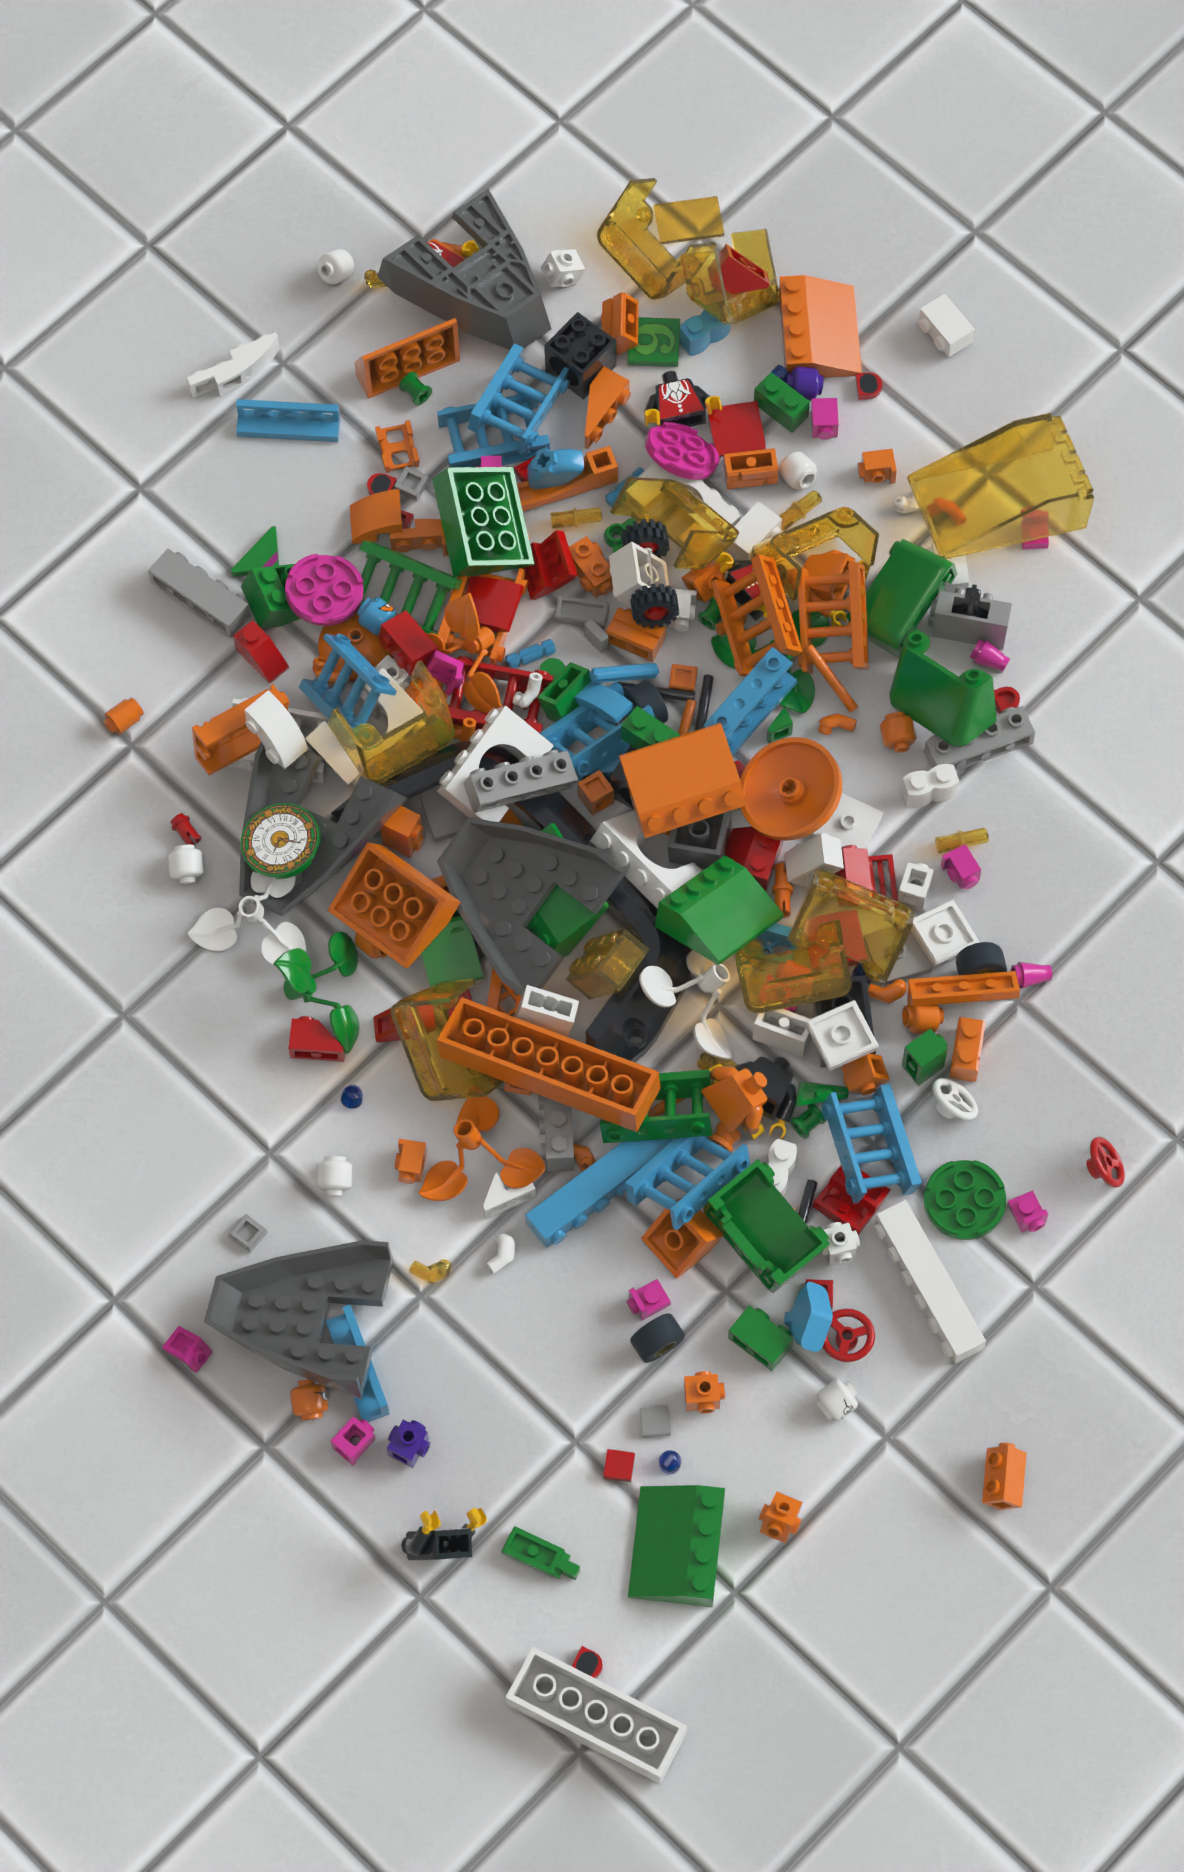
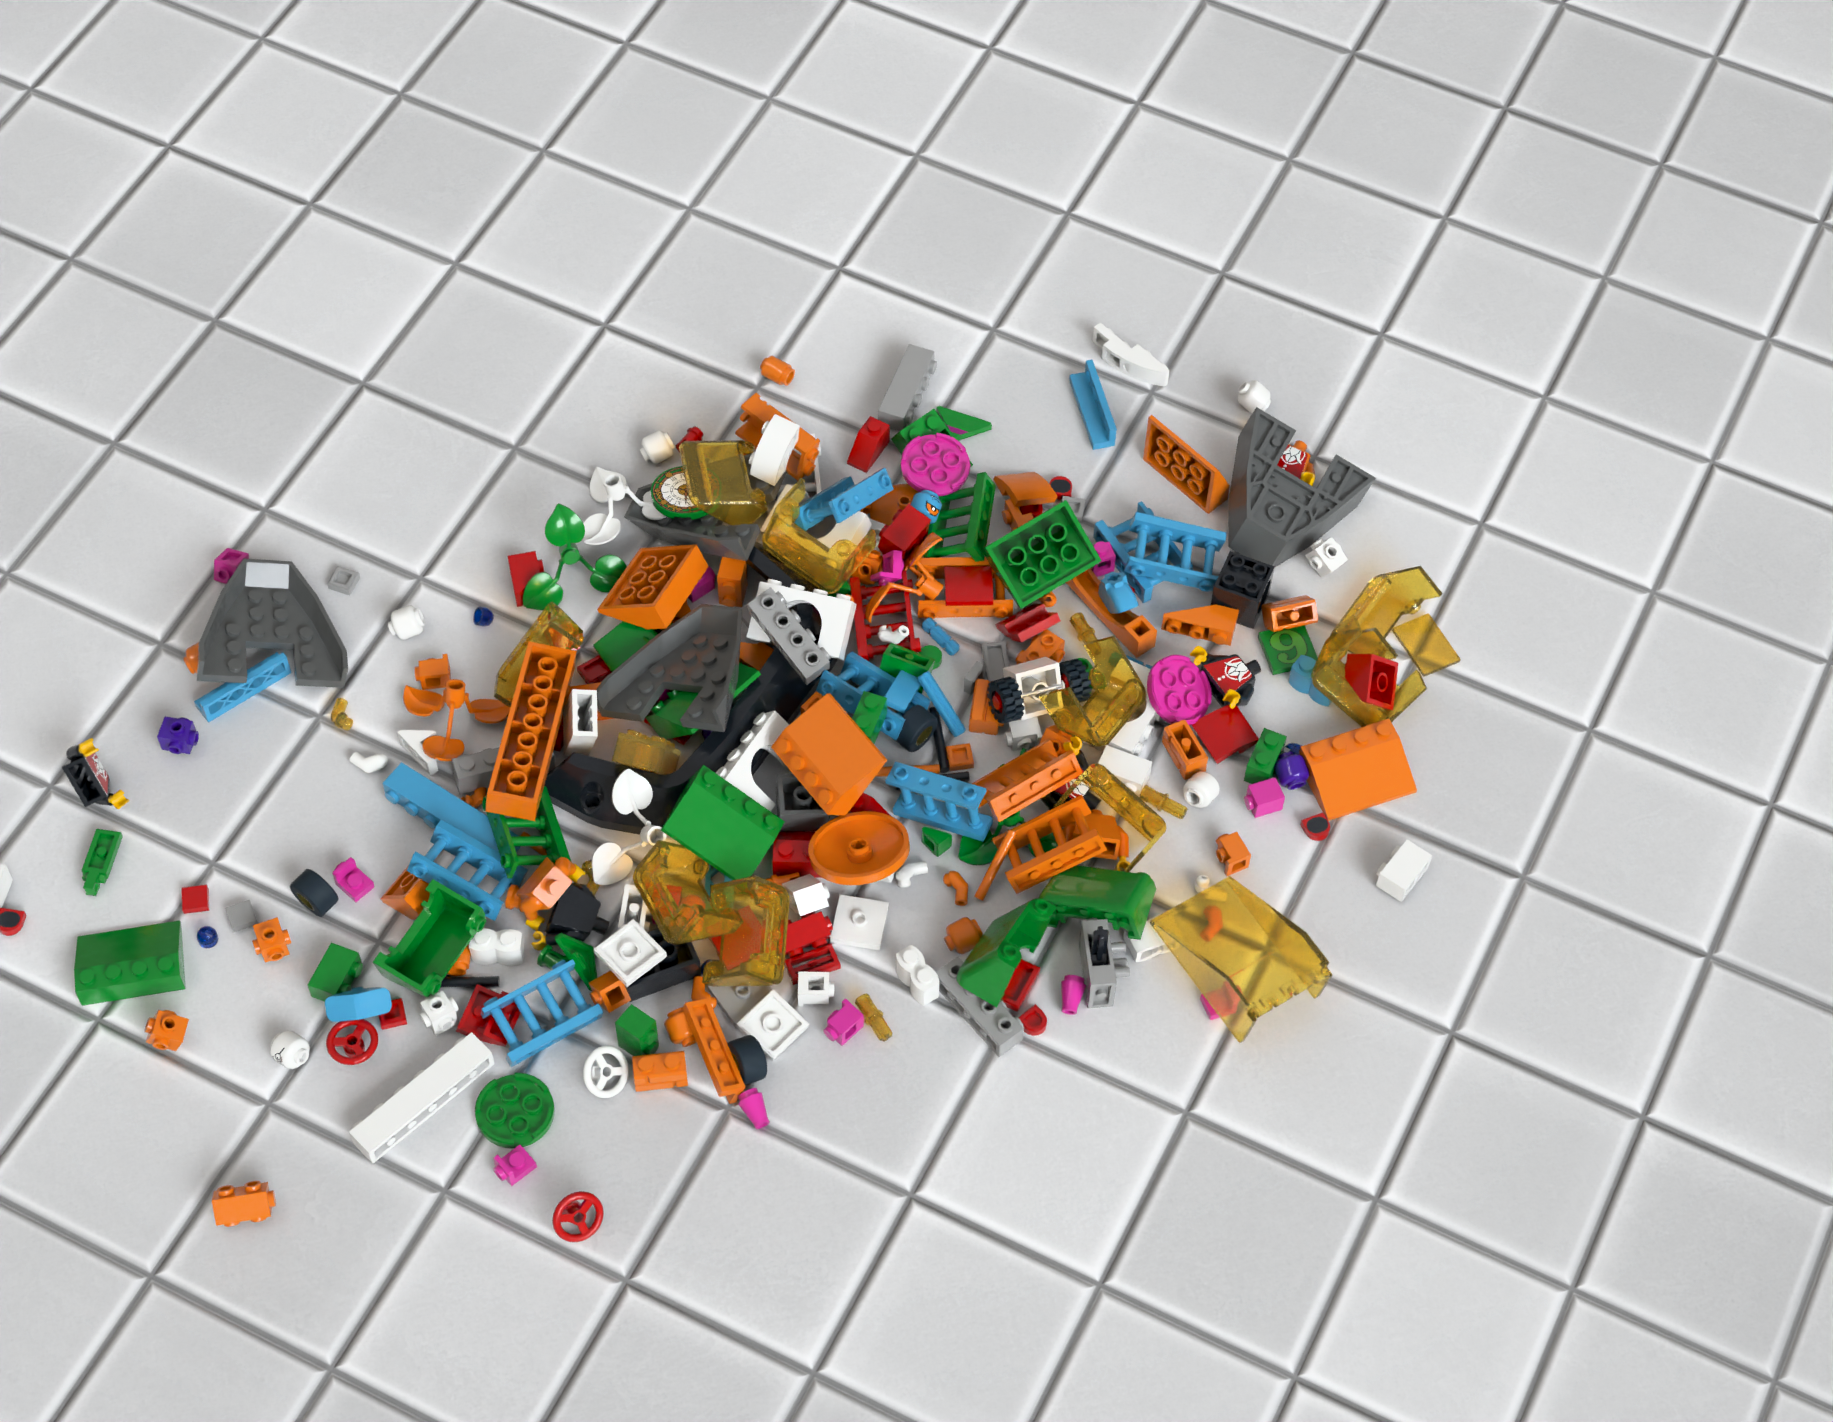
camera: 70 degrees right, 10 degrees down
(277, 798) = (720, 481): none -> clear yellow windscreen
(353, 1429) = (173, 697): dark pink brick -> none
(405, 445) = (1099, 484): orange piece -> none
(415, 388) = (1163, 485): green bush -> none

